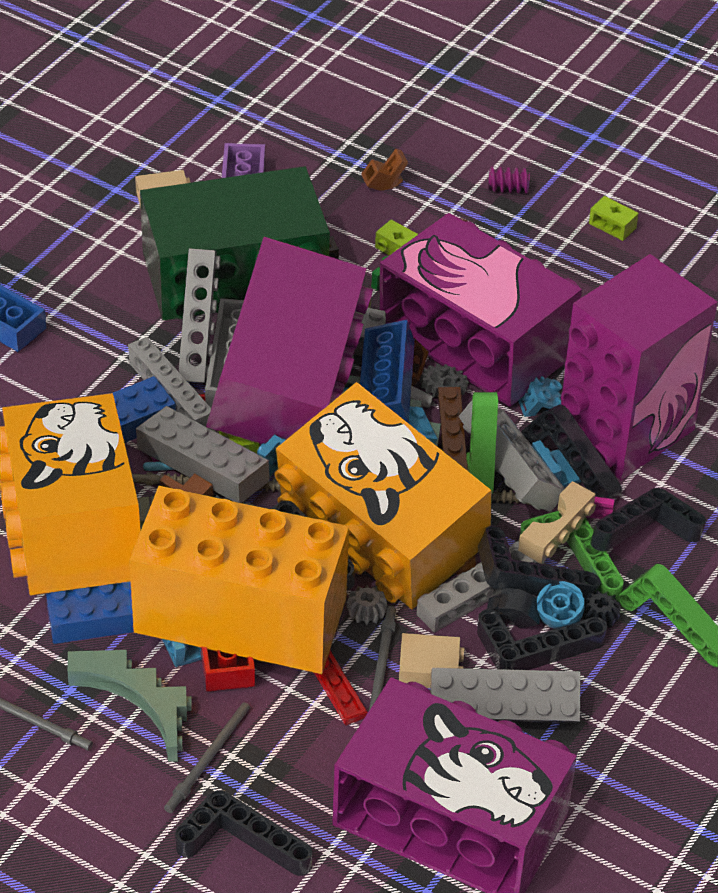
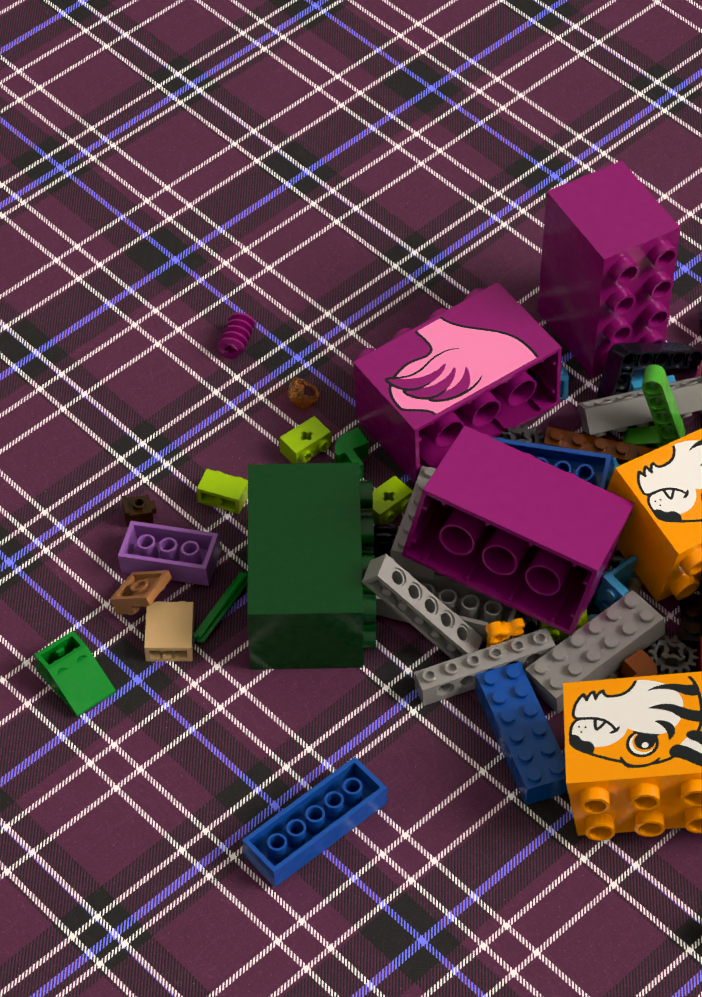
camera: 75 degrees left, 5 degrees up
(104, 145) = (73, 673): none -> green slope
(193, 163) = (139, 590): none -> medium nougat plate
(199, 381) = (499, 631): none -> light orange bar
(288, 154) = (138, 509): none -> dark brown brick
(329, 195) = (222, 491): none -> lime brick
(385, 175) = (196, 428): dark orange brick -> none
(613, 218) = (314, 268): lime brick -> none

